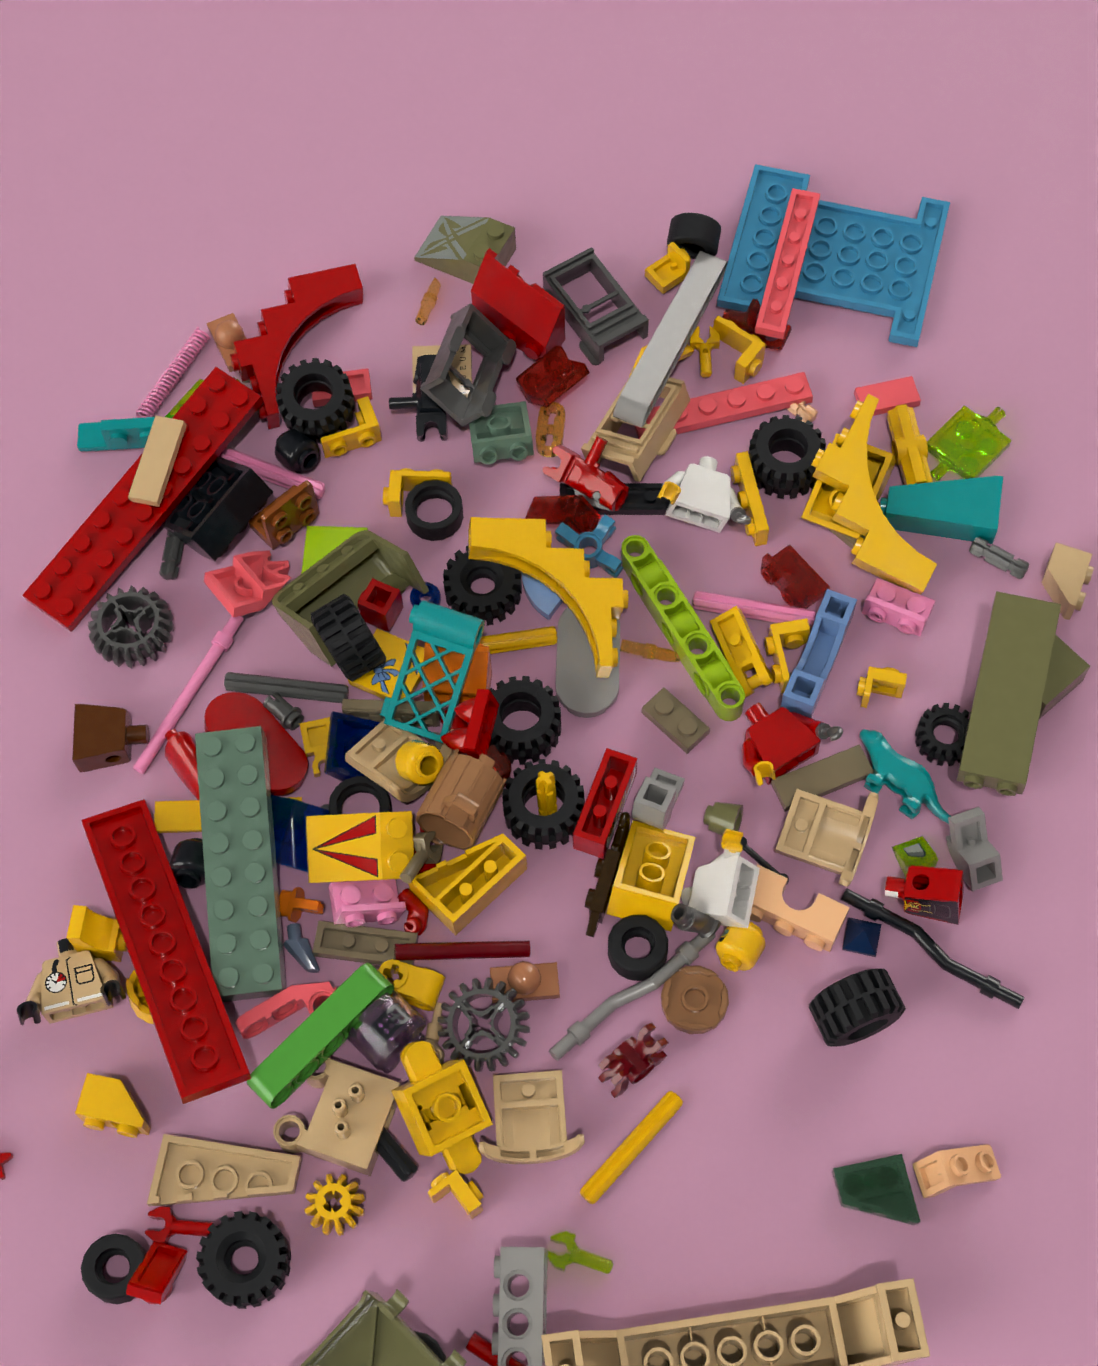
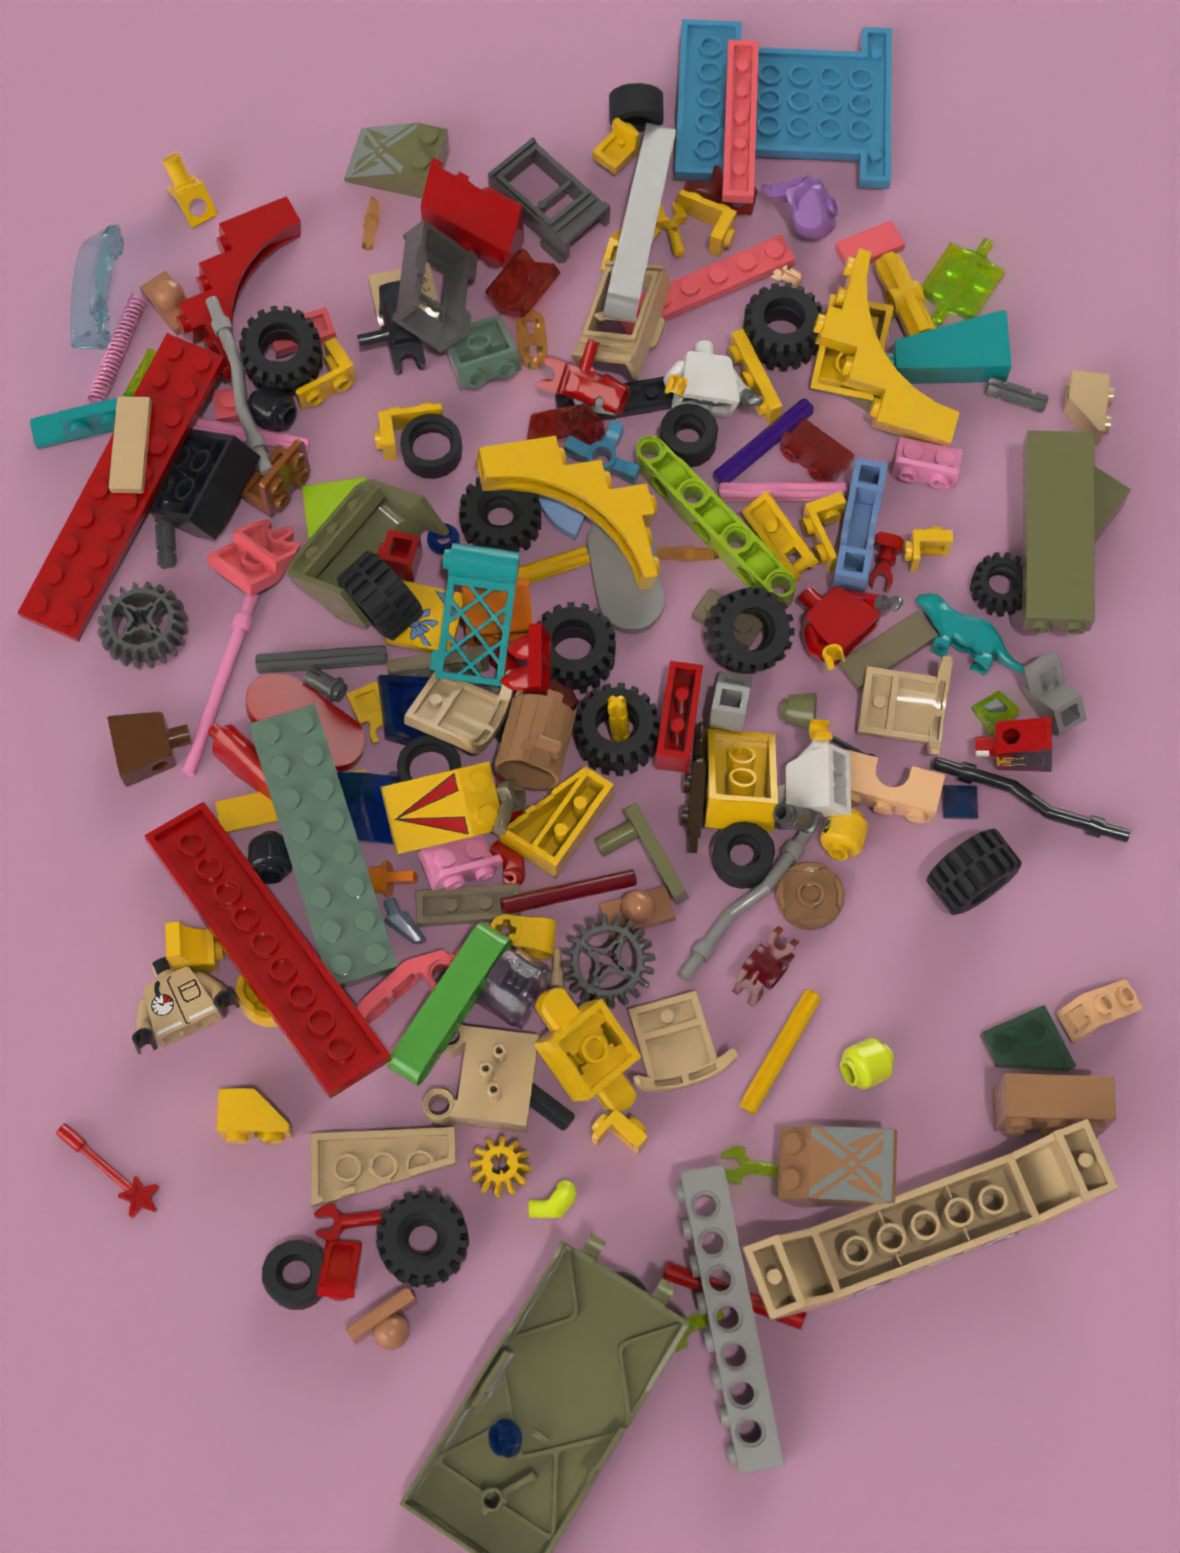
camera: 15 degrees left, 5 degrees up
(161, 316) = (92, 287): none -> clear light blue windscreen
(188, 1333) = (385, 1322): none -> nougat tile
(261, 442) = (225, 406): none -> coral plate
(267, 372) = (223, 329): none -> light grey bar
(269, 244) = (186, 189): none -> yellow bracket
(381, 1252) = (557, 1204): none -> neon yellow arm
(419, 762) = (484, 710): yellow head -> none
(544, 902) = (631, 830): none -> olive piece
(657, 1273) = (837, 1166): none -> medium nougat slope
(679, 525) = (693, 418): none -> black tyre
(713, 1176) = (867, 1064): none -> neon yellow head
(717, 733) = (775, 630): none -> black tyre
(745, 560) = (763, 442): none -> dark purple axle
(837, 349) = (810, 205): none -> medium lavender head
(843, 678) = (888, 546): none -> red piece
(887, 1255) = (1052, 1102): none -> medium nougat brick

